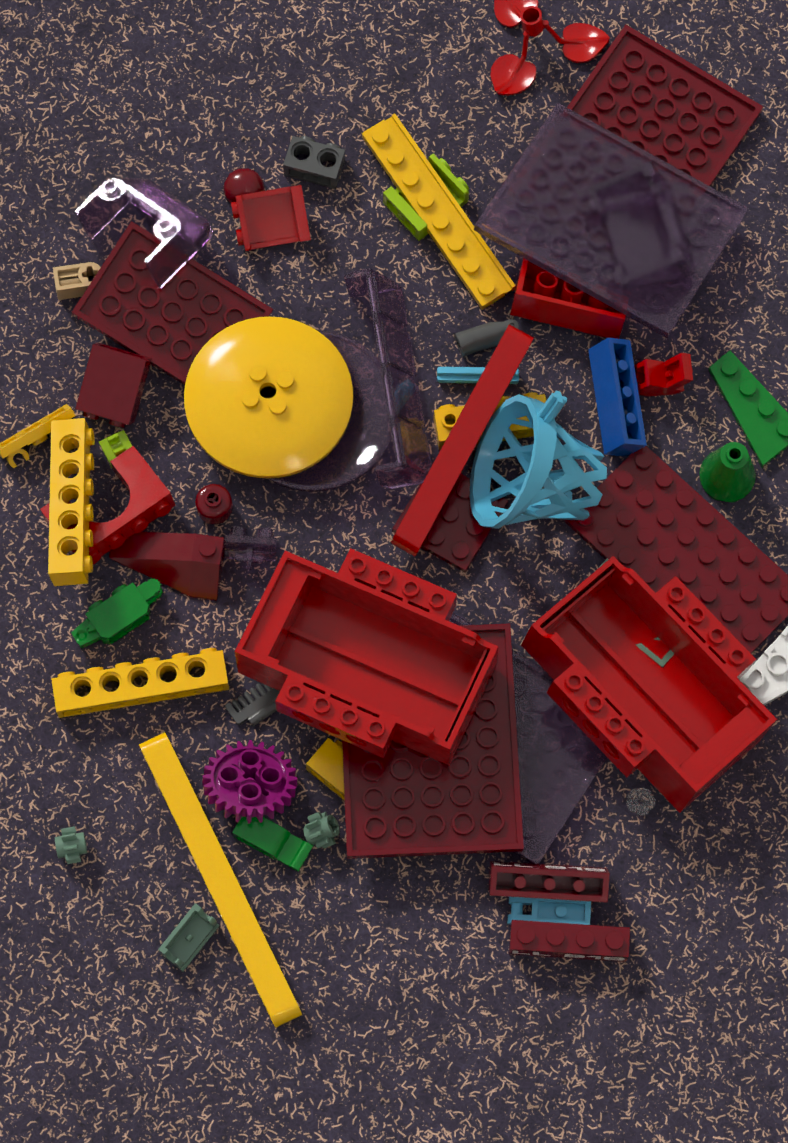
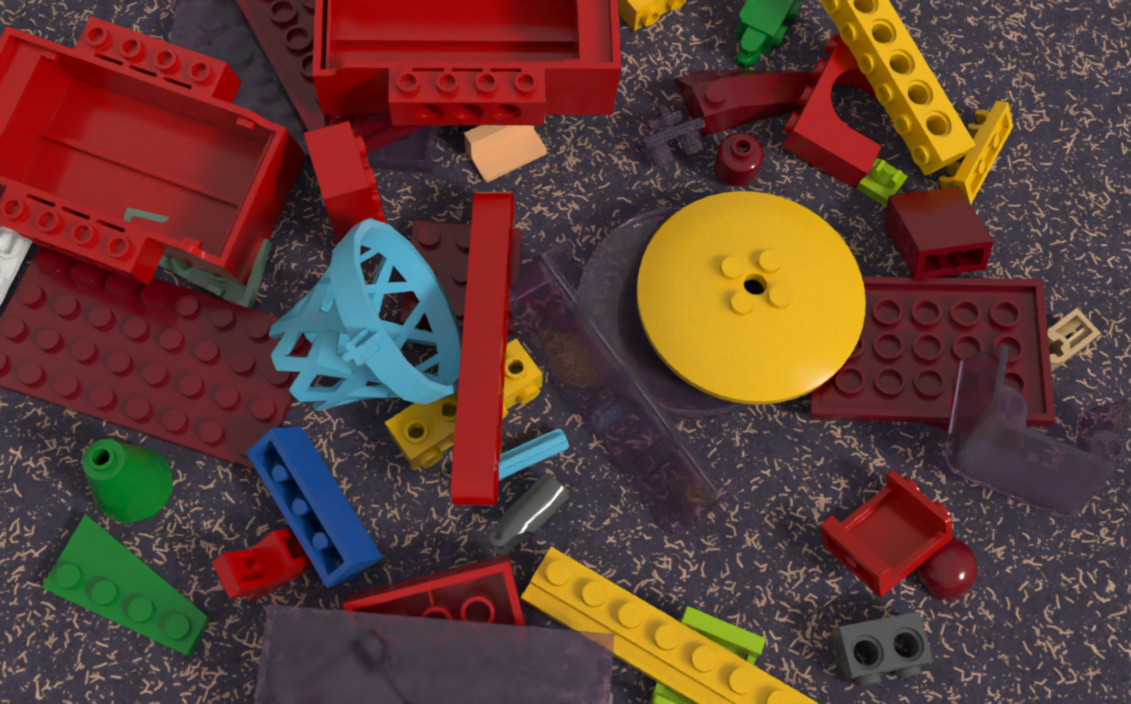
camera: 150 degrees right, 5 degrees down
(504, 589) = (344, 177): none -> red brick

